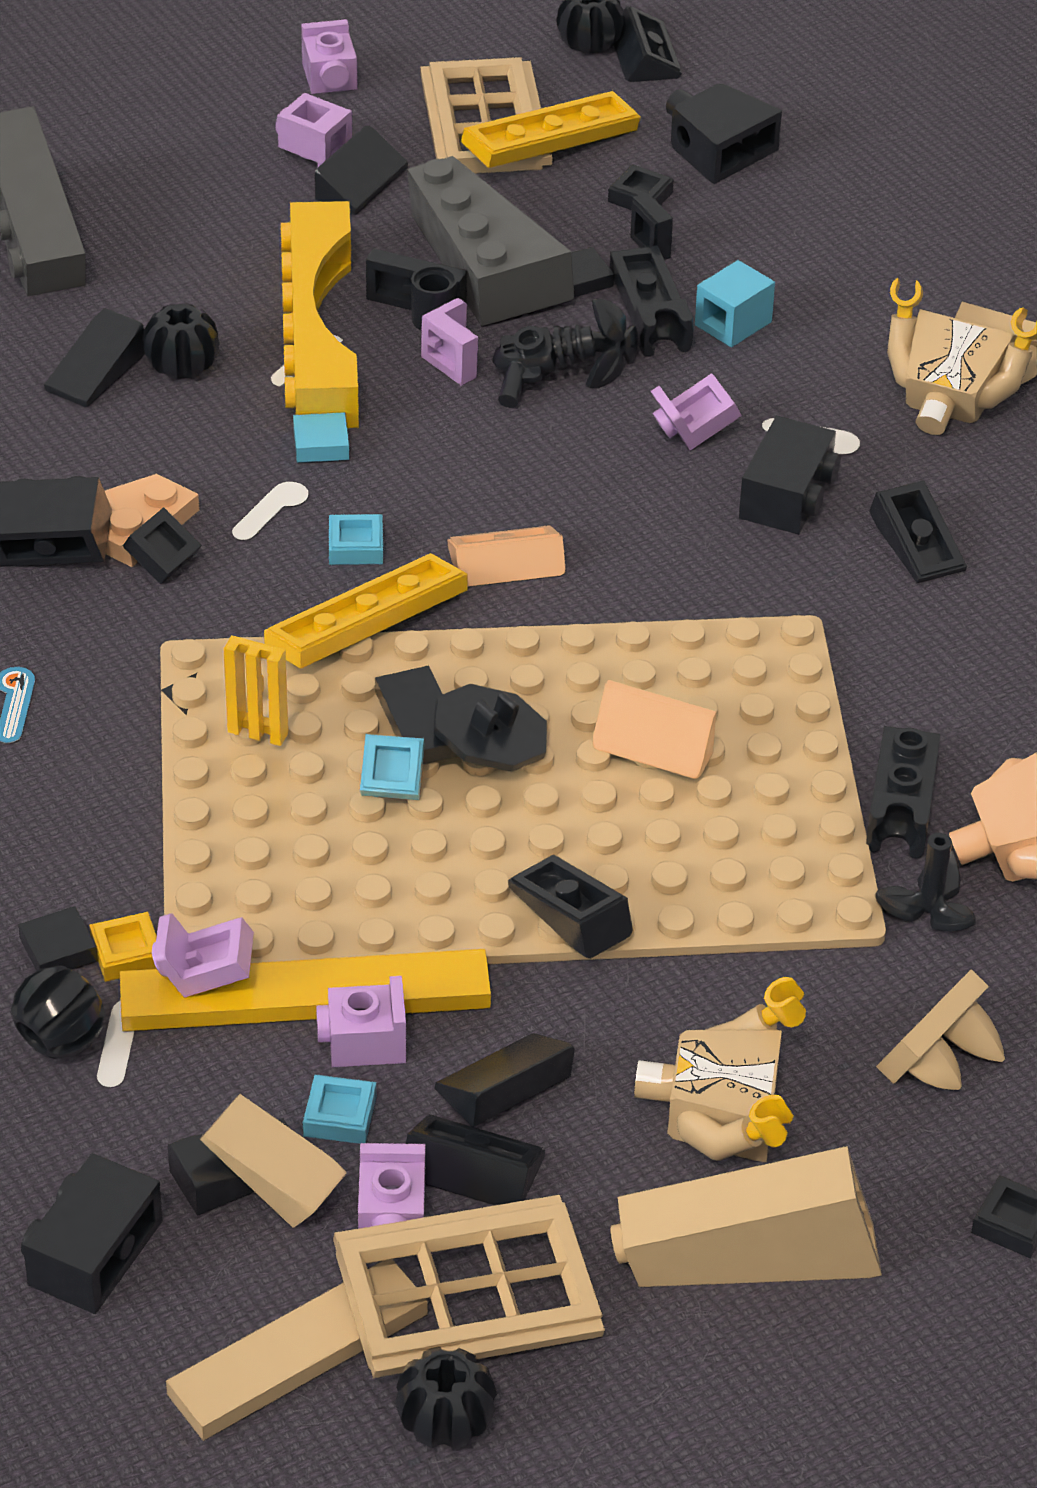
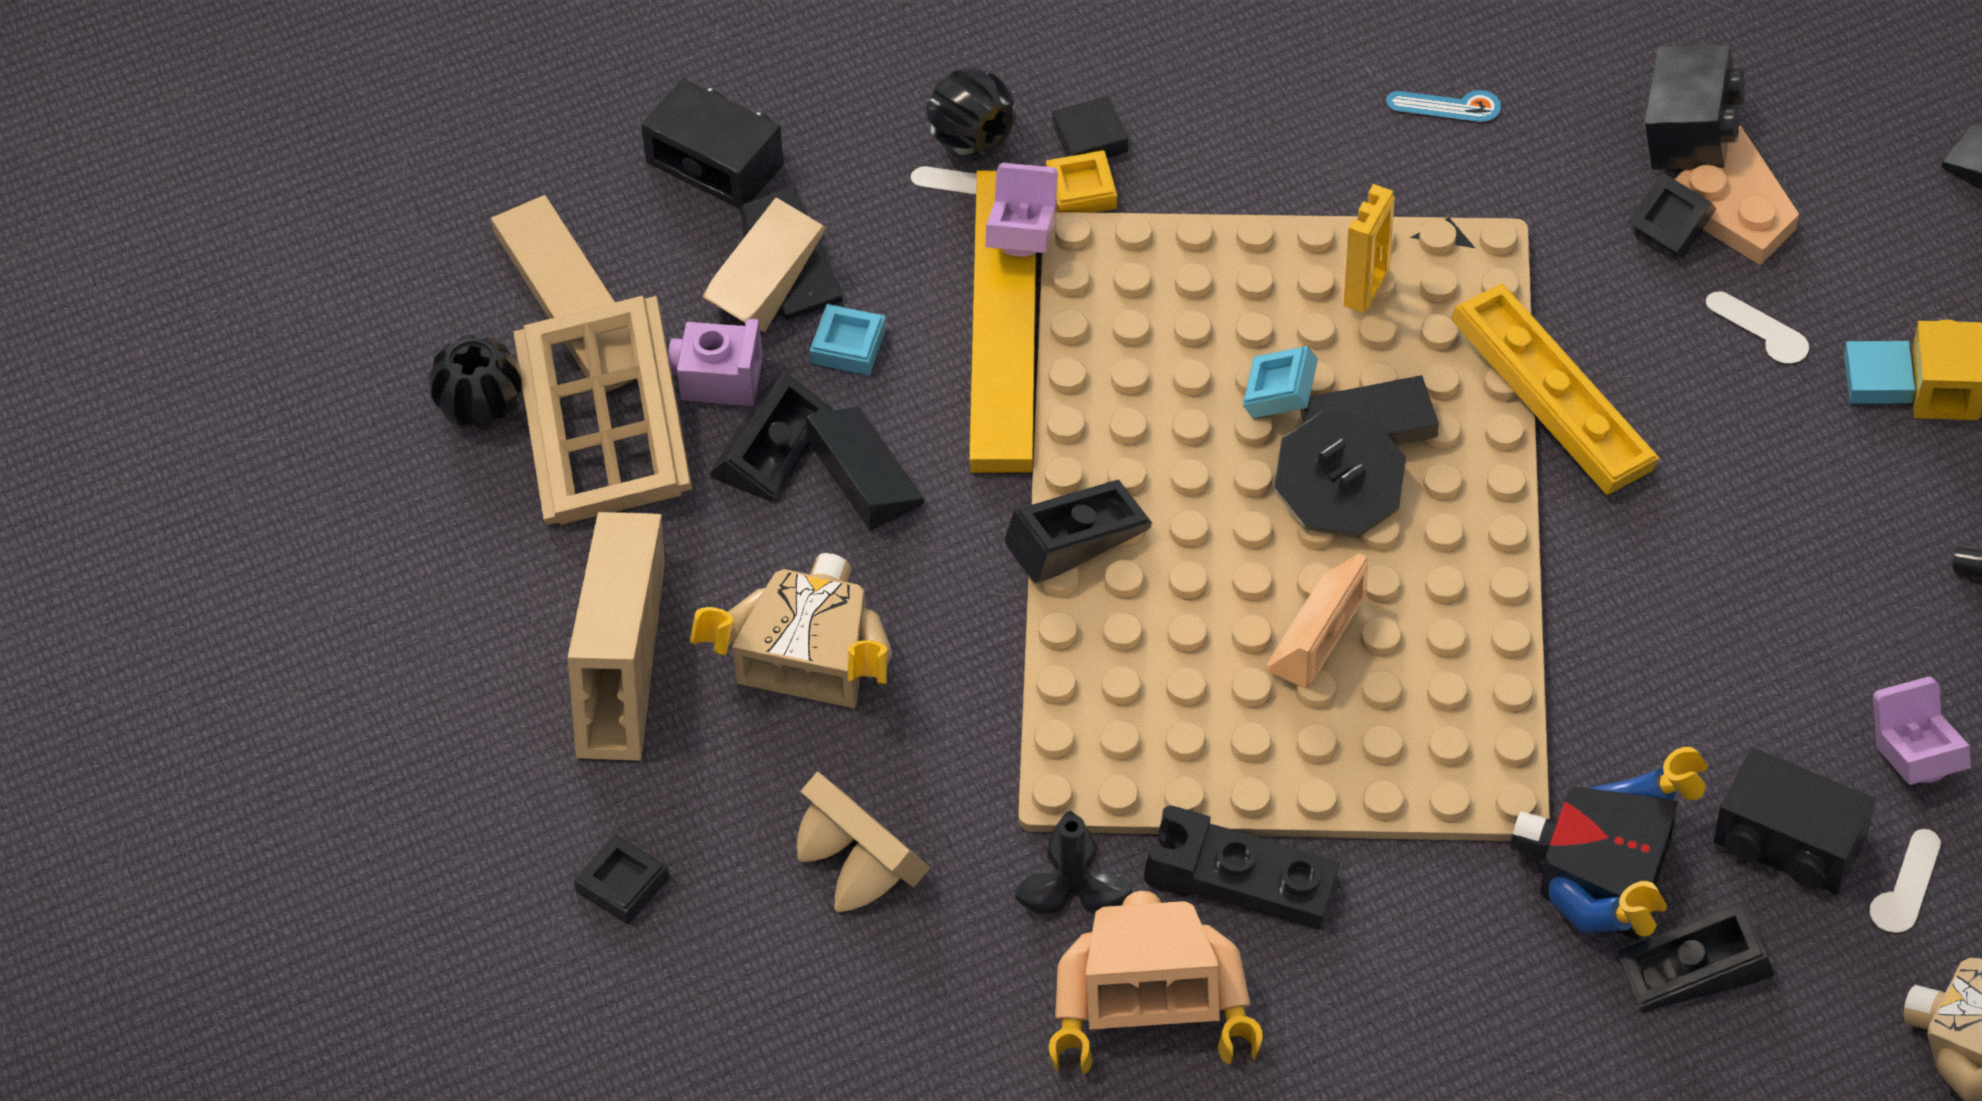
camera: 100 degrees right, 10 degrees up
(355, 539) = (1696, 397): medium azure tile -> none
(364, 1024) = (940, 342): lavender brick -> none
(509, 555) = (1669, 536): light nougat slope -> none
(845, 568) = (1611, 846): none -> torso

